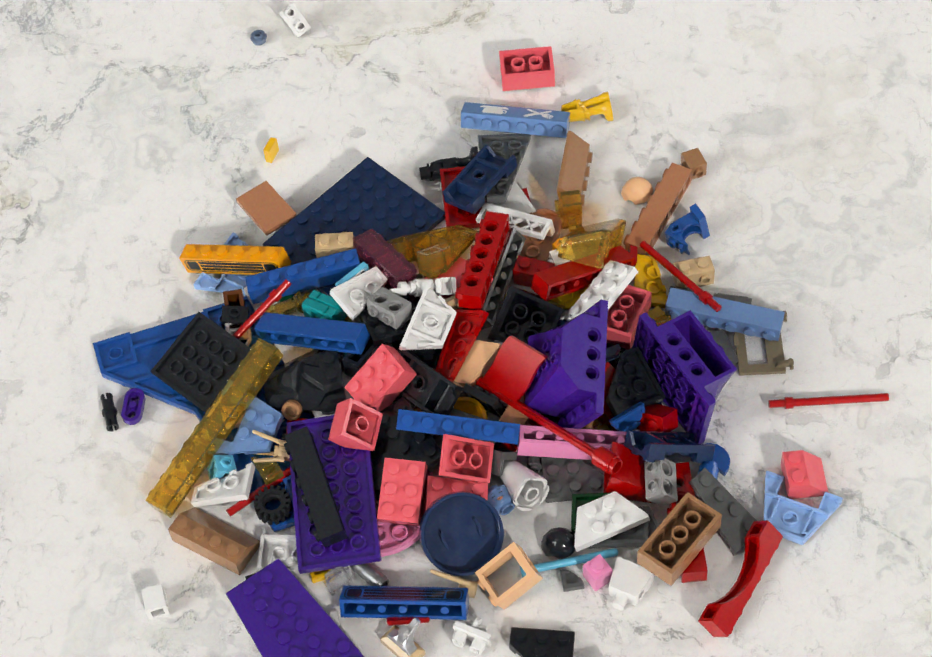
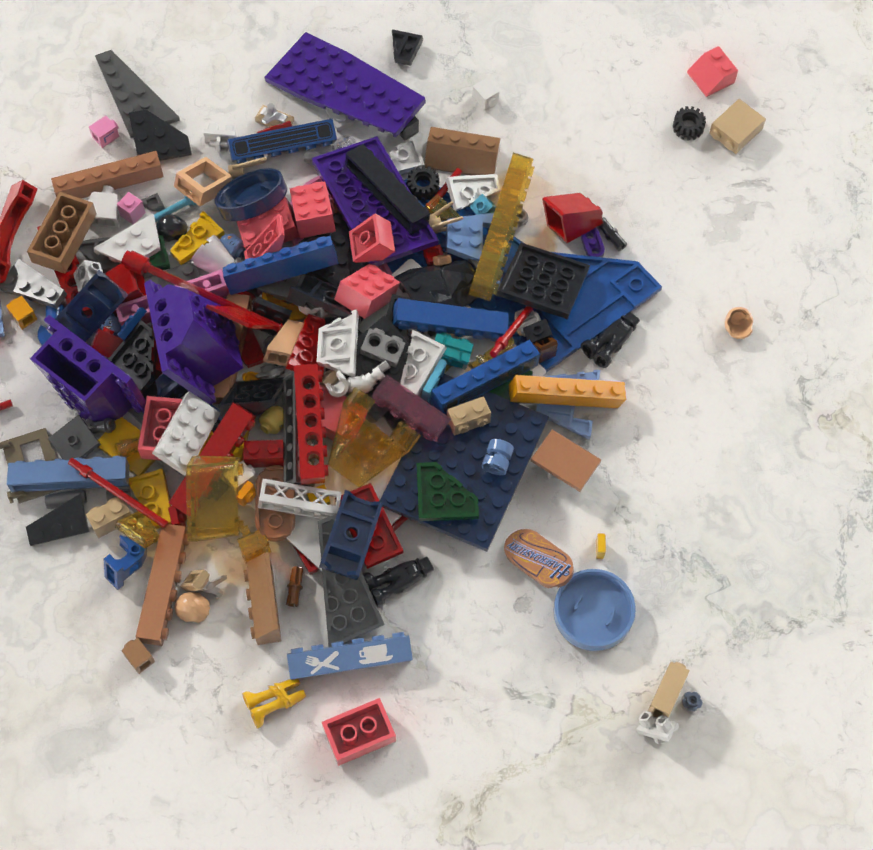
camera: 155 degrees right, 10 degrees up
(44, 292) = (739, 323): none -> light nougat hair
(137, 427) = (571, 215): none -> red slope
(165, 310) = (614, 335): none -> black piece
(275, 36) = (668, 689): none -> tan brick
(301, 106) = (594, 610): none -> medium blue brick
(326, 206) = (497, 459): none -> medium blue wheel
(327, 149) = (539, 558): none -> nougat tile
(387, 194) = (443, 495): none -> dark green plate
(535, 521) = (197, 235): none -> yellow wing
(543, 184) = (294, 586): none -> dark orange axle
(616, 617) = (114, 174): none -> nougat brick
(626, 198) = (199, 581): none -> tan piece
(669, 247) = (138, 528): none -> clear yellow wing
(737, 280) = (59, 523): none -> black wing
(742, 488) = (21, 312): none -> light orange brick

